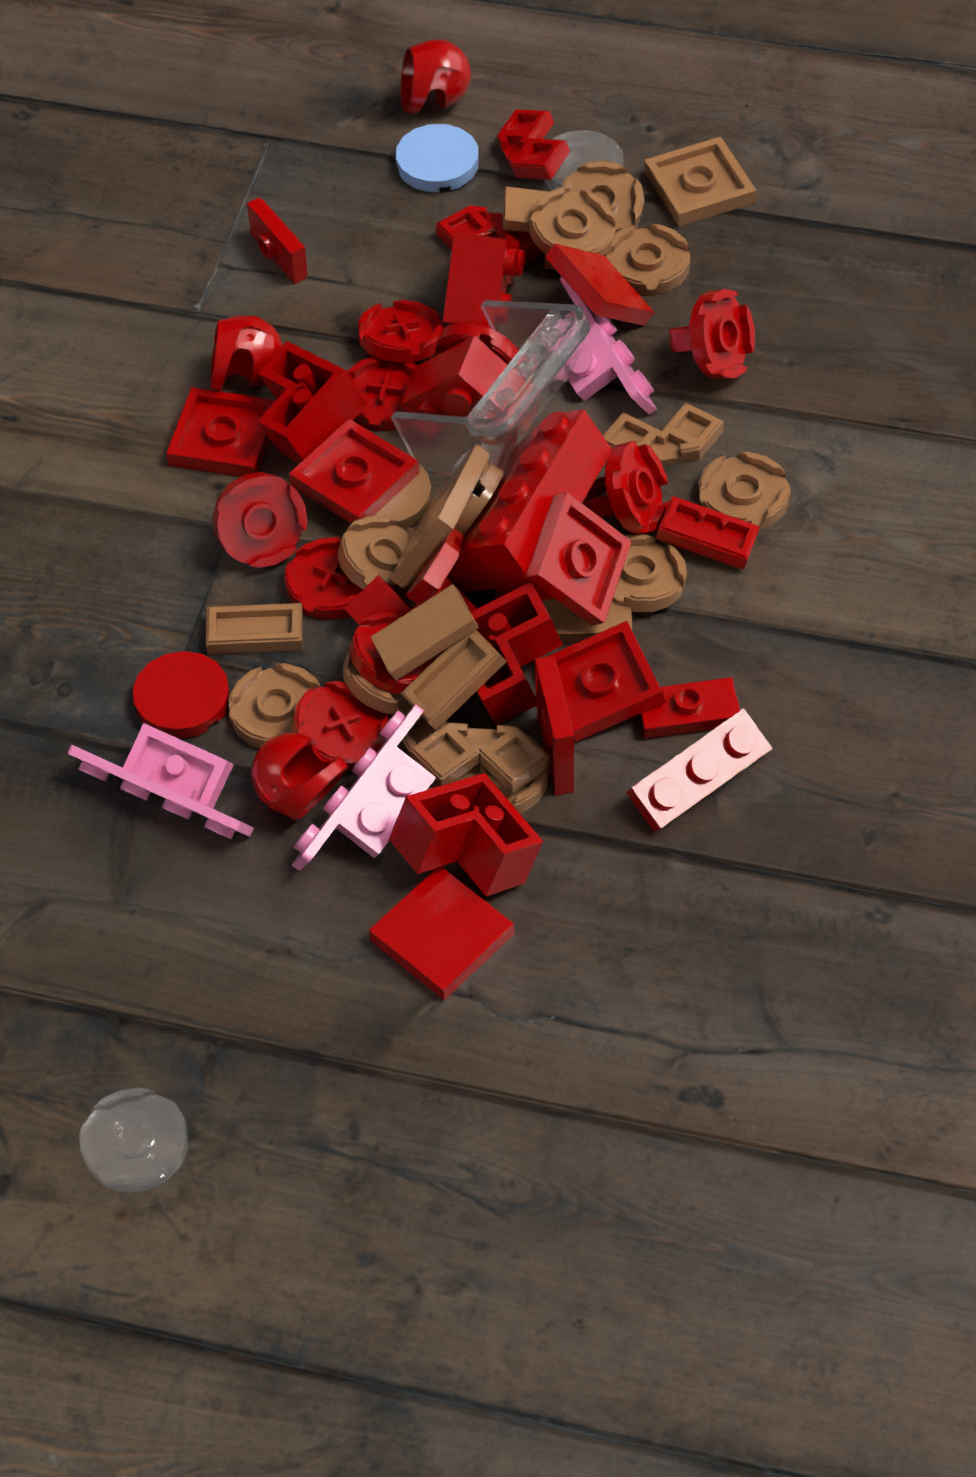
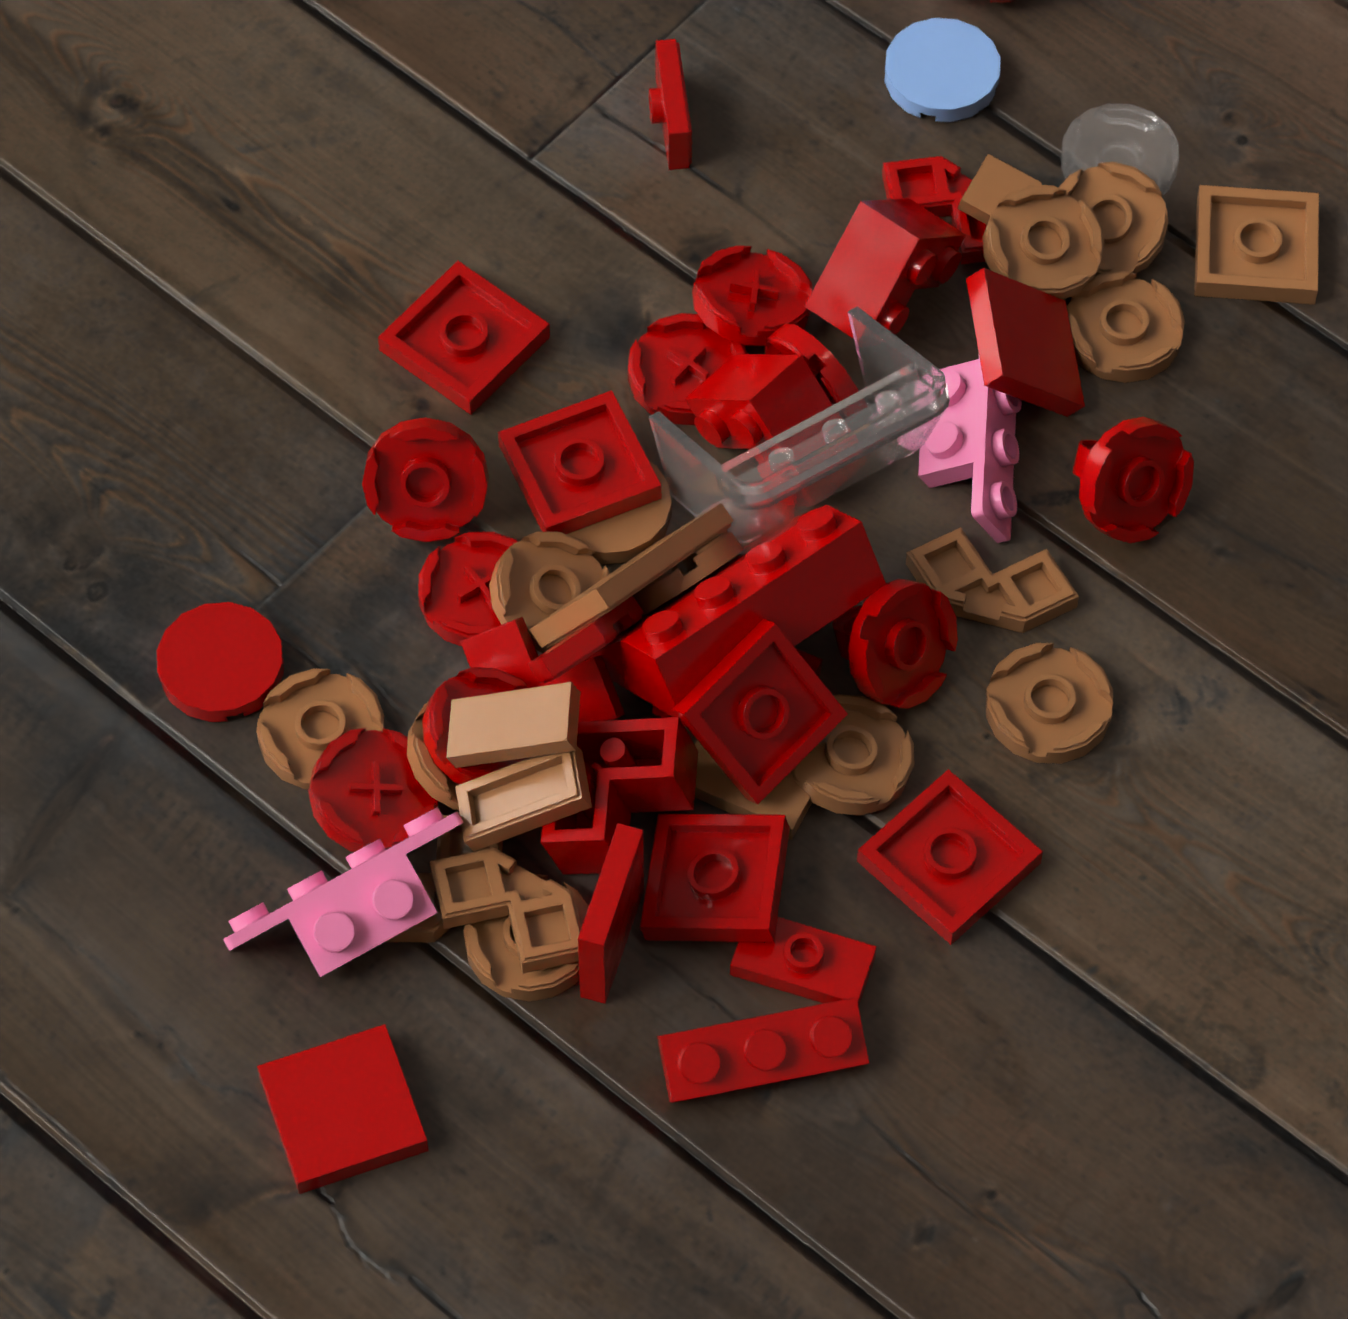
camera: 25 degrees right, 5 degrees up
(174, 770) = (145, 761): bright pink bracket -> none
(242, 349) = (547, 236): red helmet -> none
(254, 628) = (353, 614): medium nougat tile -> none
(293, 775) = (276, 830): red helmet -> none
(309, 403) = (573, 353): red brick -> none
(469, 826) = (435, 991): red brick -> none
(525, 147) = (1054, 114): red tile -> none
(707, 532) = (964, 738): red plate -> none
(740, 607) = (949, 856): none -> red tile

